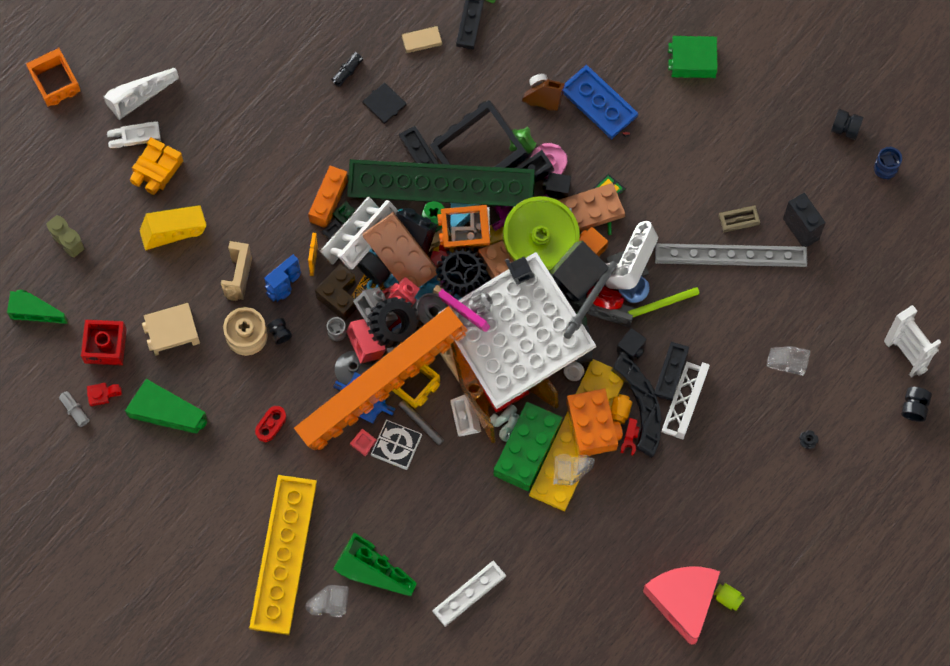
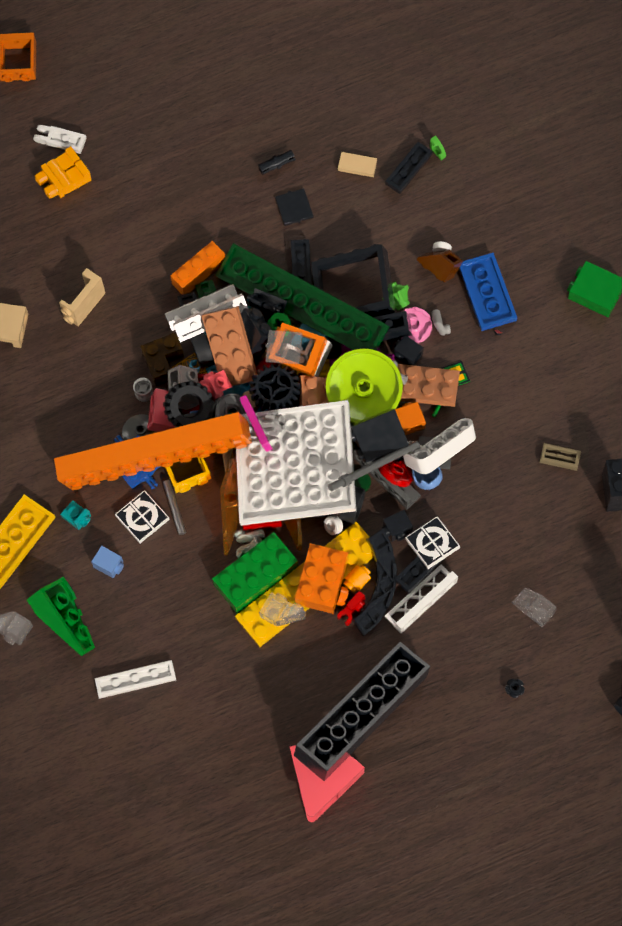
camera: 30 degrees right, 0 degrees up
(135, 93) = (78, 102): white wedge -> none
(171, 226) = (49, 233): yellow wedge -> none
(245, 331) = (62, 354): tan wheel -> none
(270, 424) = (41, 445): red plate -> none
(279, 279) = (116, 321): blue plate -> none
(279, 330) = (92, 368): black wheel -> none
(313, 254) = (156, 313): light orange piece -> none
(335, 471) = (76, 515): none -> teal bracket
(363, 442) = (114, 501): coral tile -> none
(388, 500) = (108, 562): none -> medium blue brick
(410, 198) = (266, 302): none -> black hinge
(454, 230) = (284, 347): none -> clear piece
(464, 416) = (213, 522): white slope -> none
(520, 270) = (323, 409): black panel -> none
(569, 148) = (437, 321): none -> light grey arm
(664, 302) = (448, 501): lime bar -> none
(671, 345) = (432, 542): none -> tile
(692, 523) = (361, 711): none -> black brick
(728, 596) = (364, 794): lime brick -> none
(731, 255) = (535, 486): light grey tile -> none

